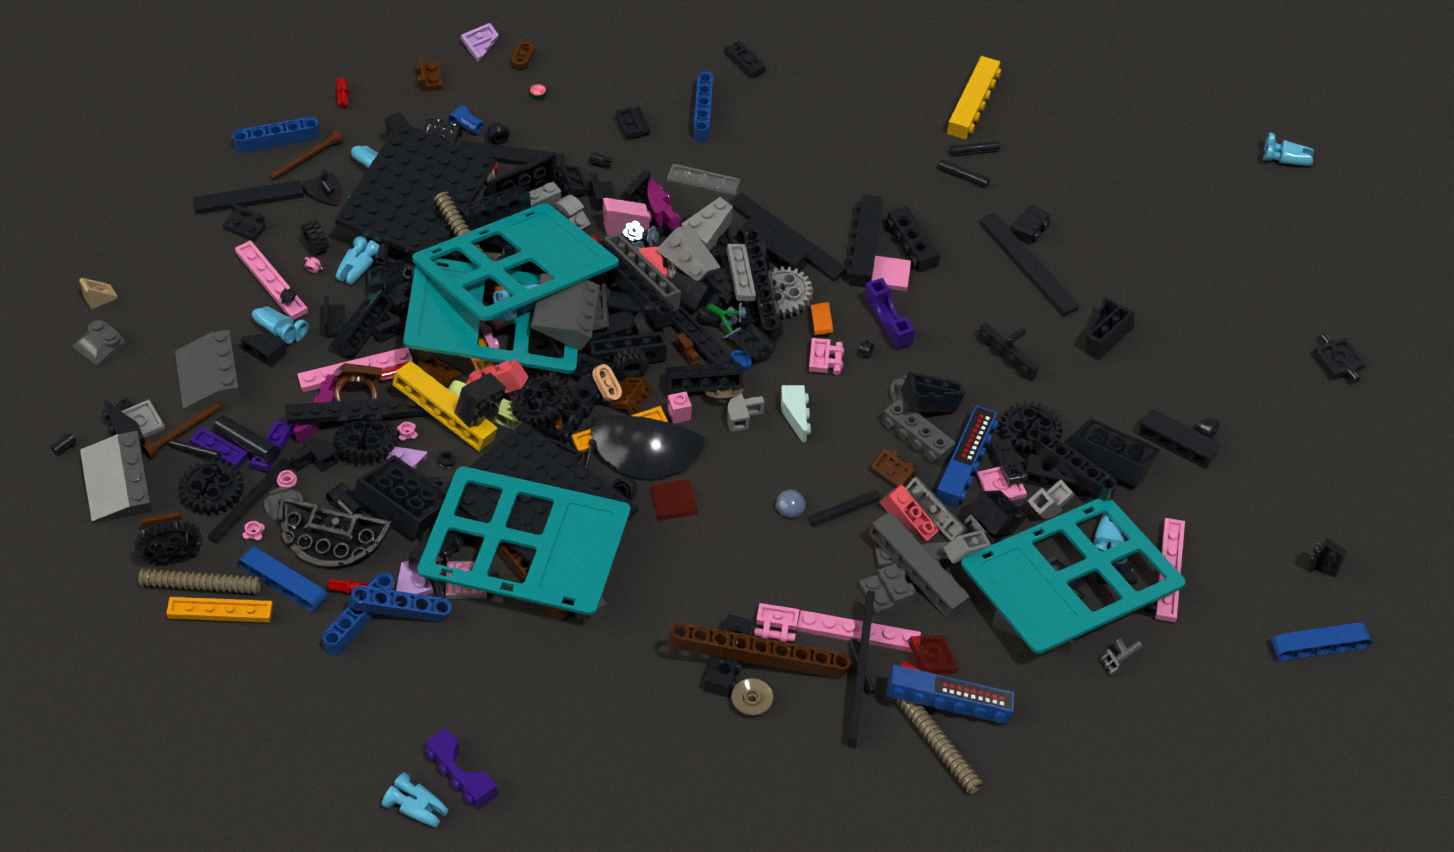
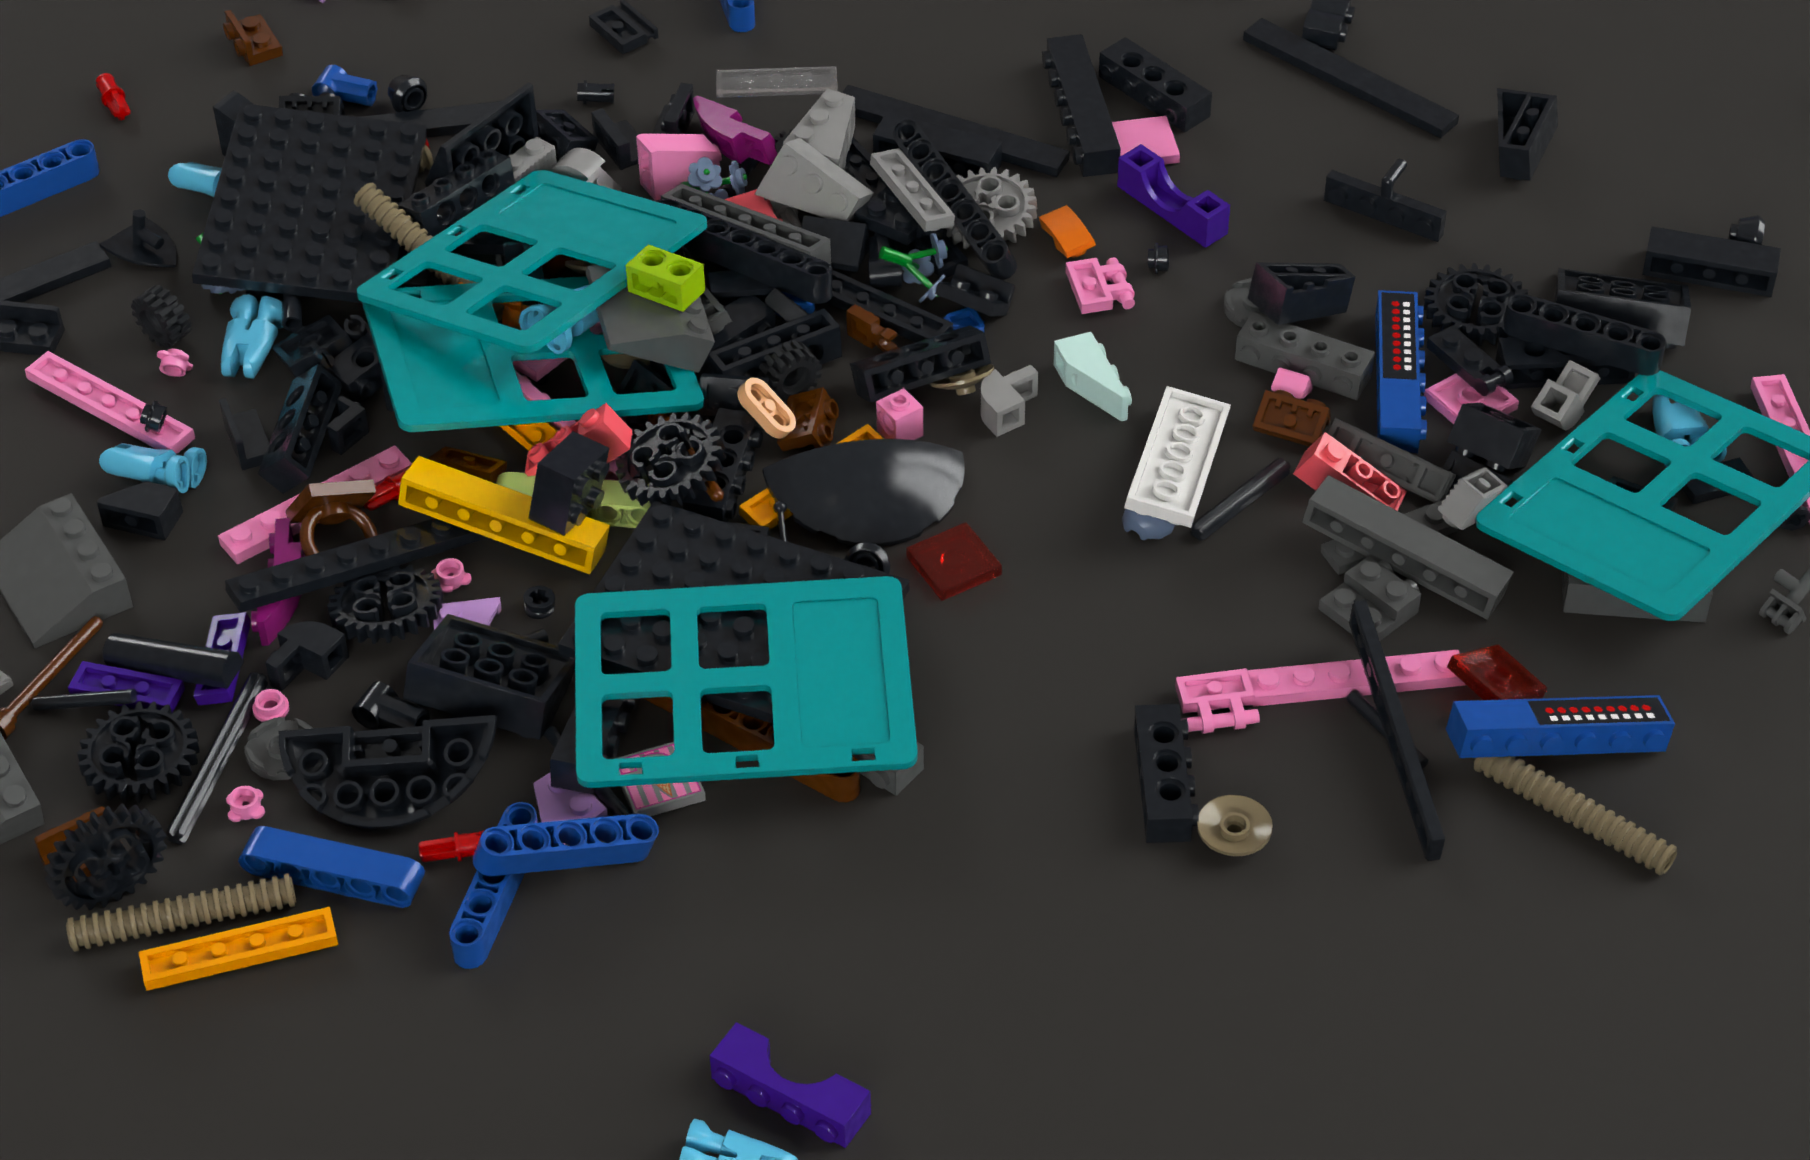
camera: 15 degrees left, 5 degrees down
(334, 138) = (127, 165): reddish brown piece -> none
(538, 91) = (445, 20): tile -> none
(576, 294) = (665, 277): none -> lime brick
(769, 648) = (1215, 745): reddish brown beam -> none
(817, 474) = (1177, 457): none -> white plate
(903, 448) = (1292, 382): none -> bright pink slope

